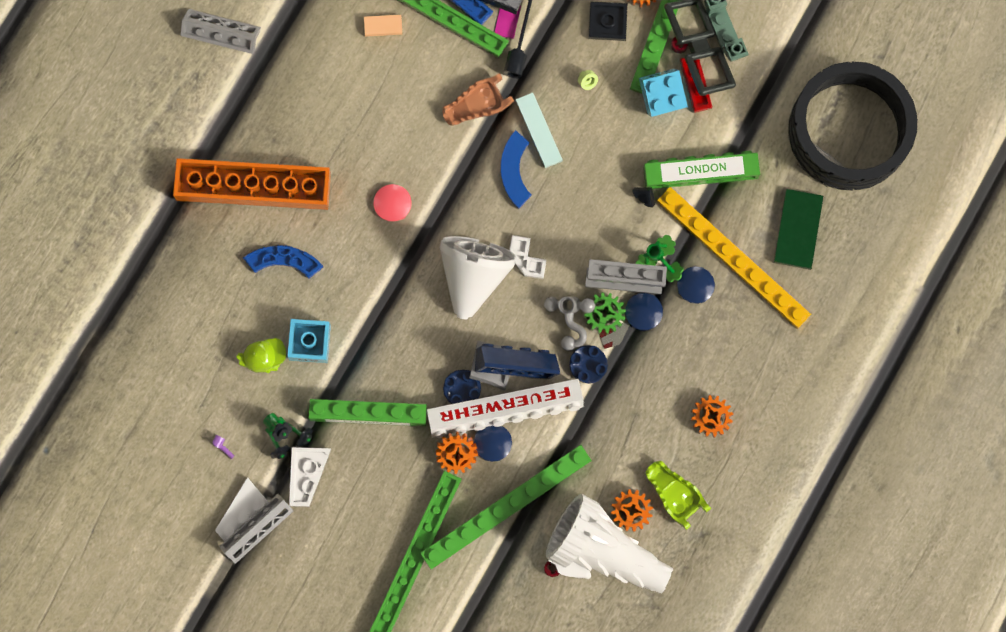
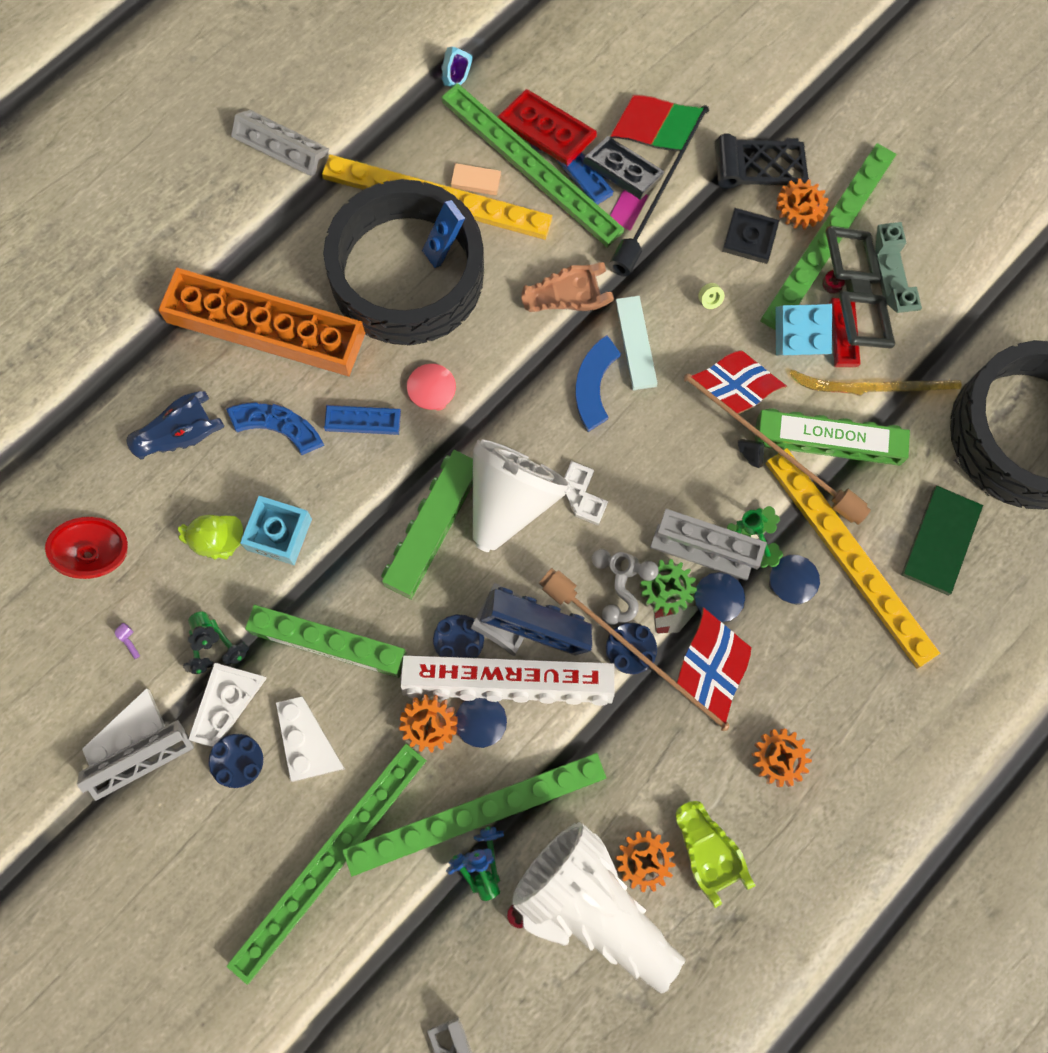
camera: 15 degrees right, 5 degrees down
(171, 380) = (86, 547): none -> red dish
(210, 280) = (178, 426): none -> dark blue animal
(326, 512) = (236, 760): none -> dark blue dish
(339, 59) = (392, 202): none -> black tyre
(348, 241) = (362, 420): none -> blue plate
(356, 47) = (483, 208): none -> yellow plate
(371, 487) = (304, 741): none -> white wing
(372, 82) = (443, 234): none -> blue plate
(421, 308) = (430, 526): none -> bright green brick
(525, 551) = (486, 882): none -> plant
(623, 148) = (741, 384): none -> flag
(647, 365) = (709, 667): none -> flag
(716, 126) = (862, 388): none -> clear yellow piece

